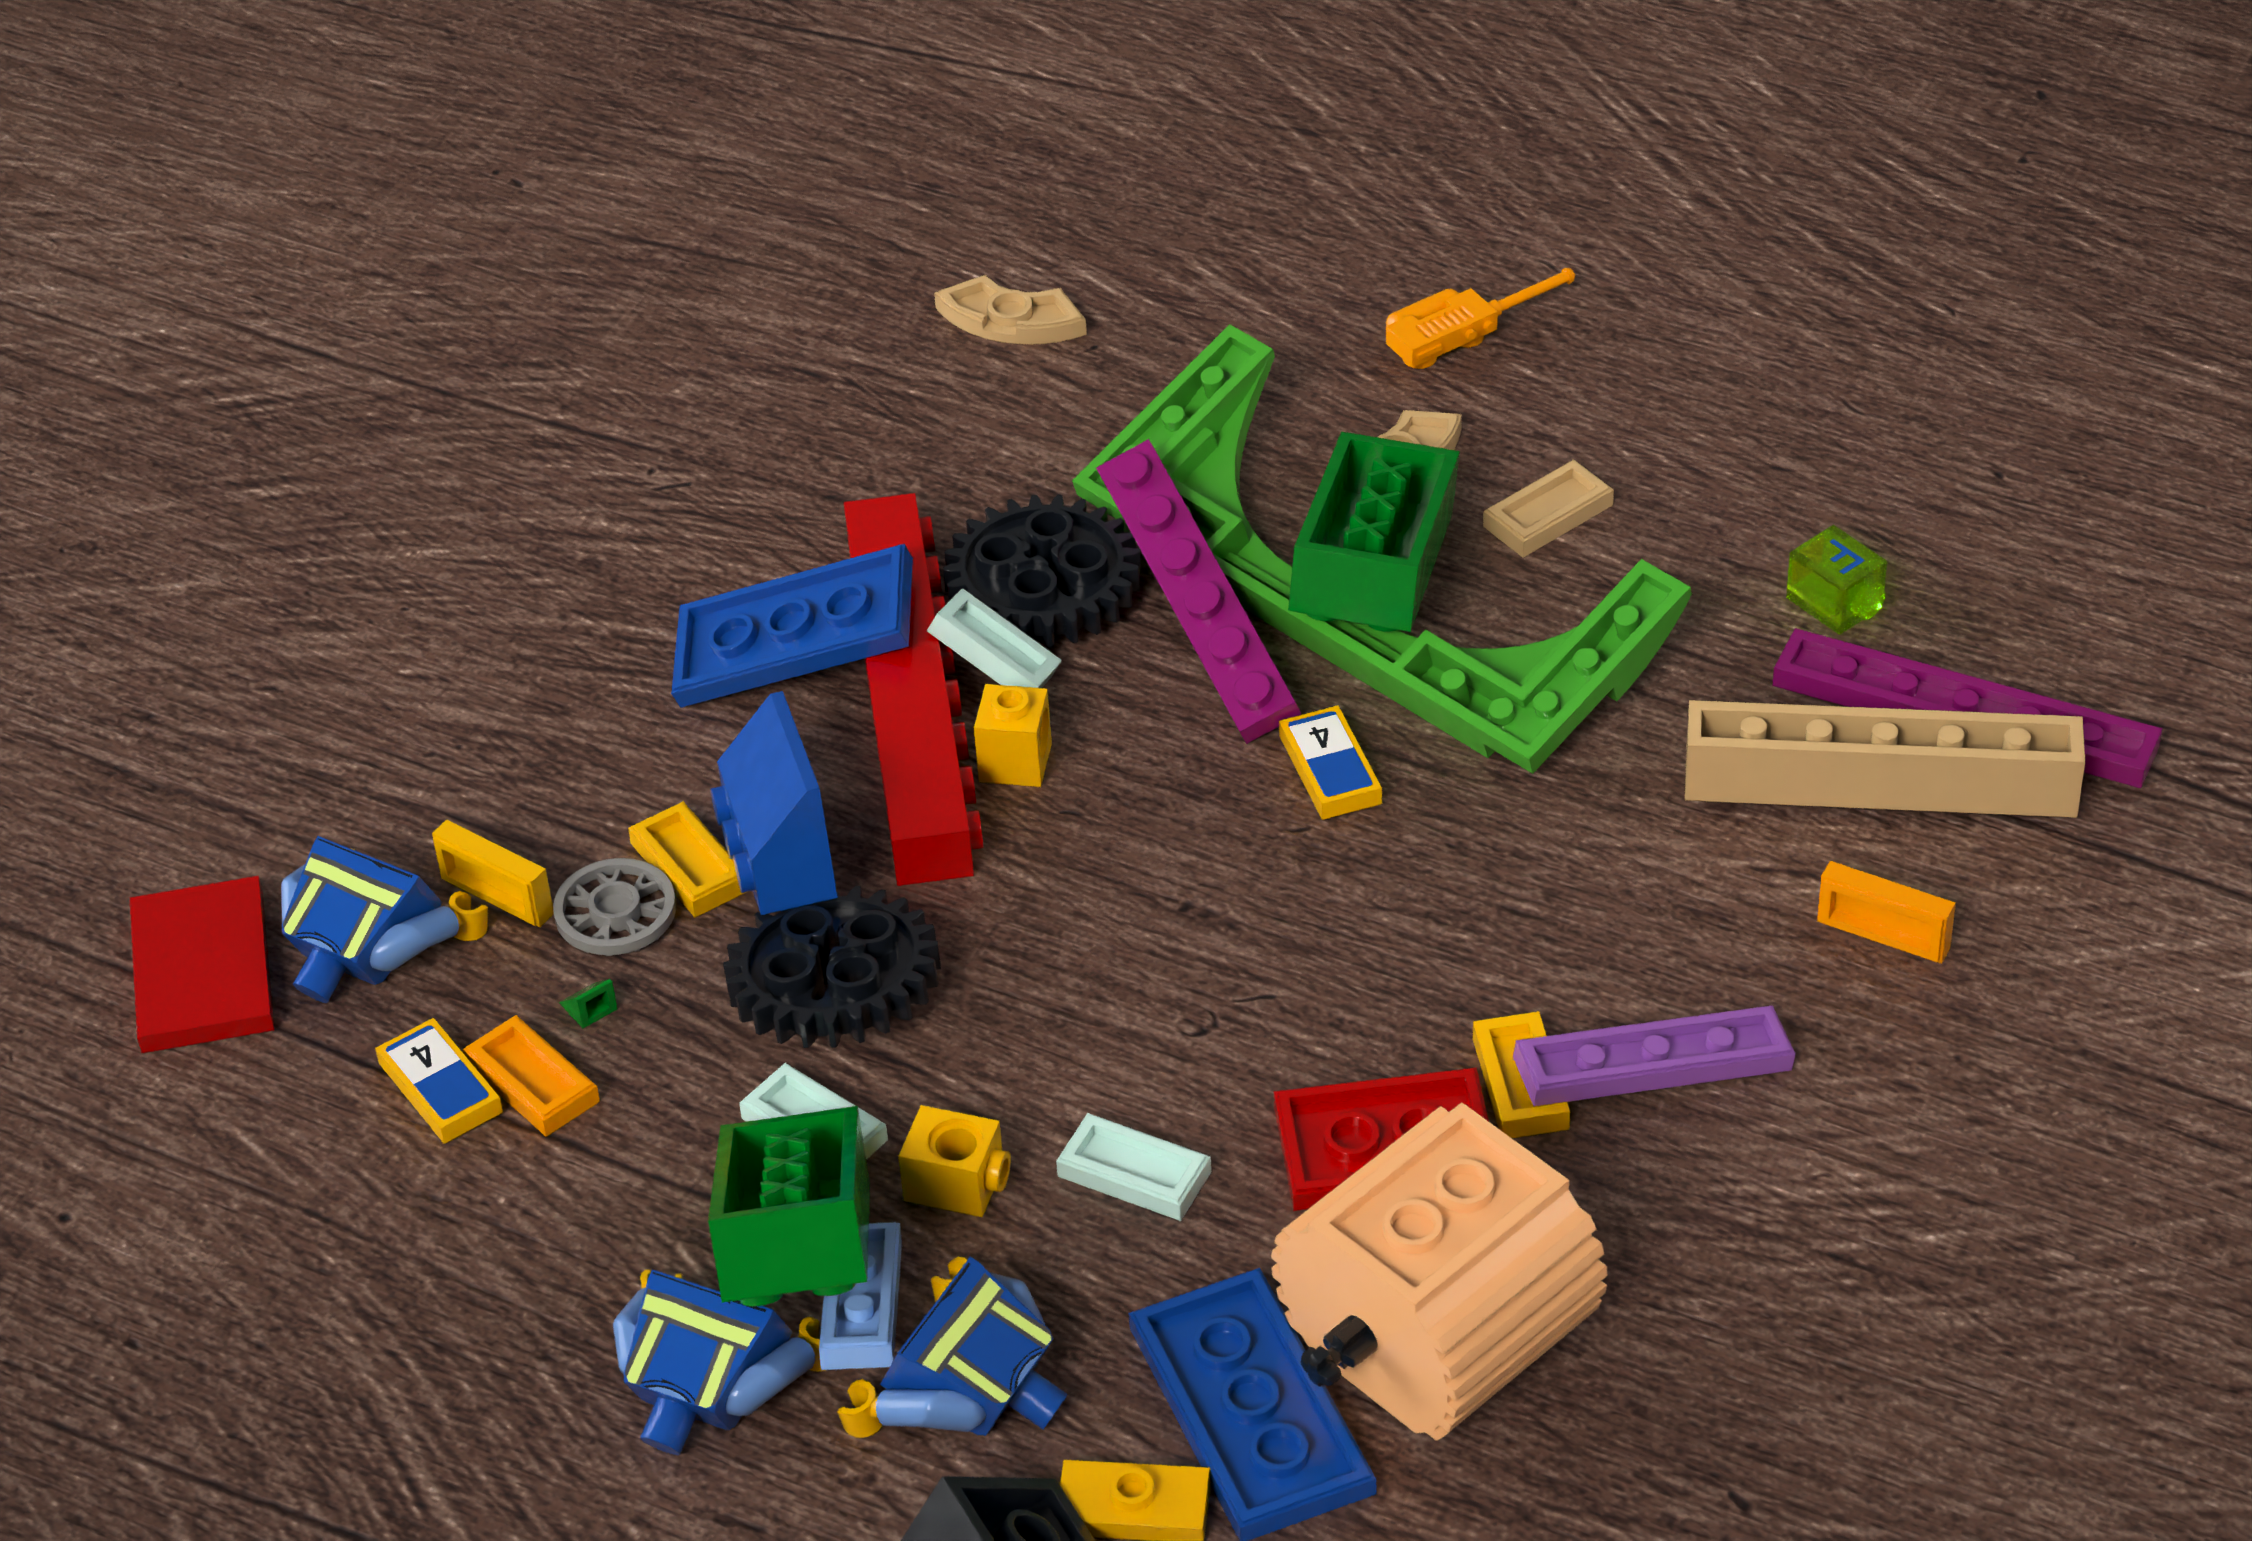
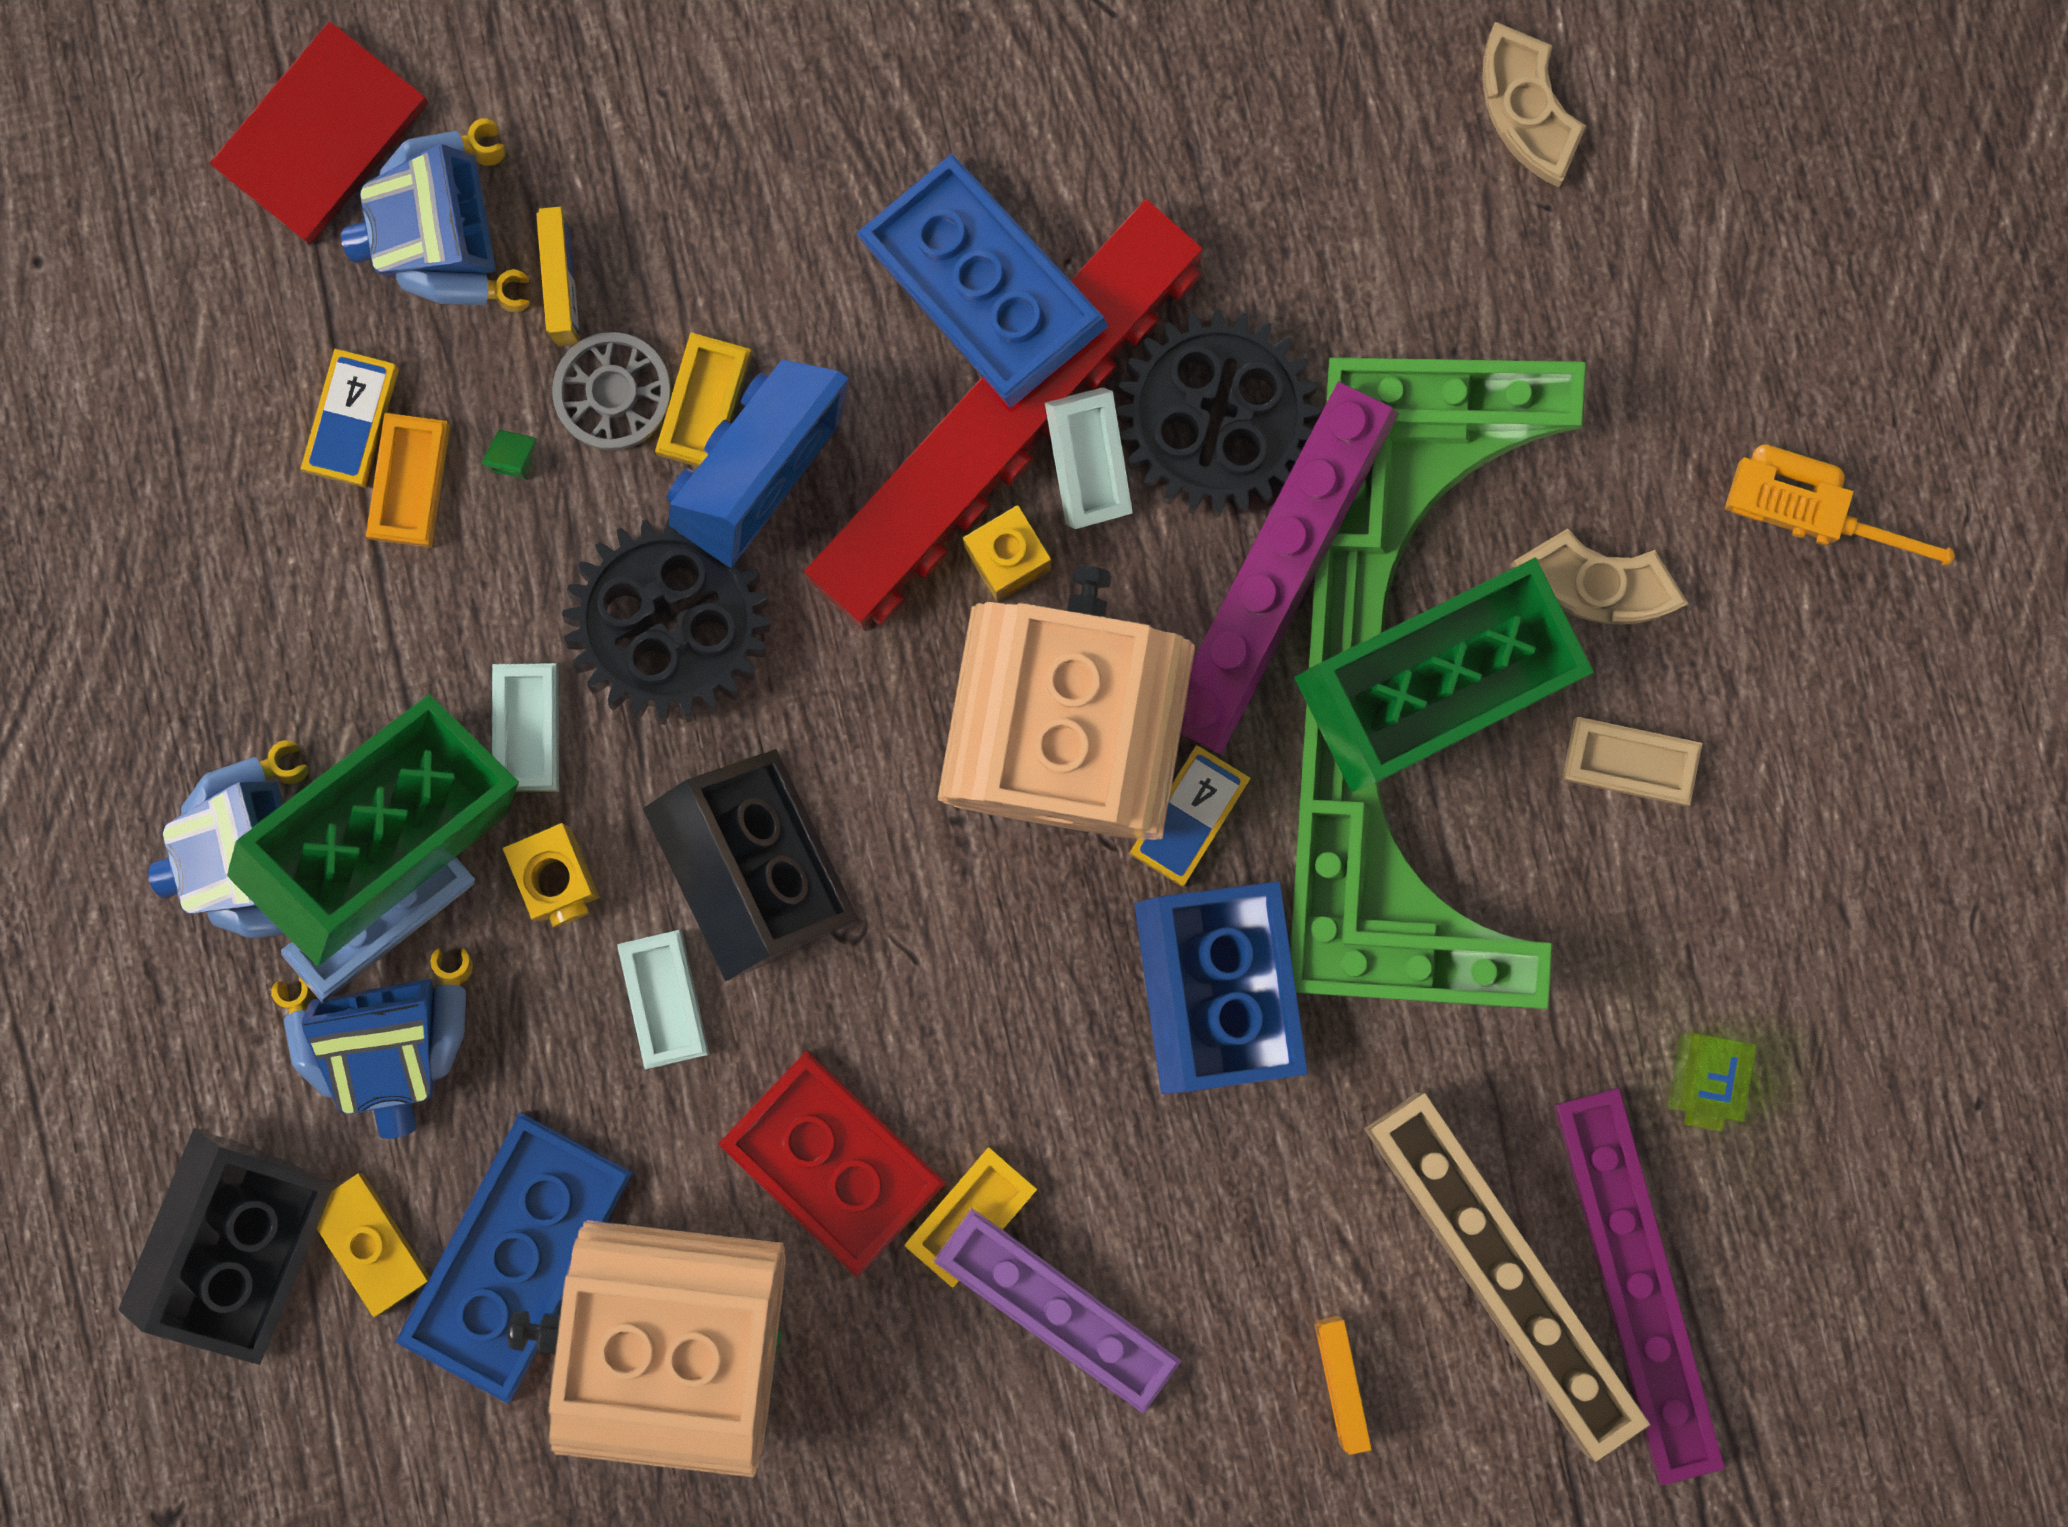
camera: 50 degrees right, 40 degrees up
(1079, 1036) = (749, 863): none -> black slope
(1182, 734) = (1067, 716): none -> light nougat piece
(1483, 799) = (1220, 988): none -> blue slope

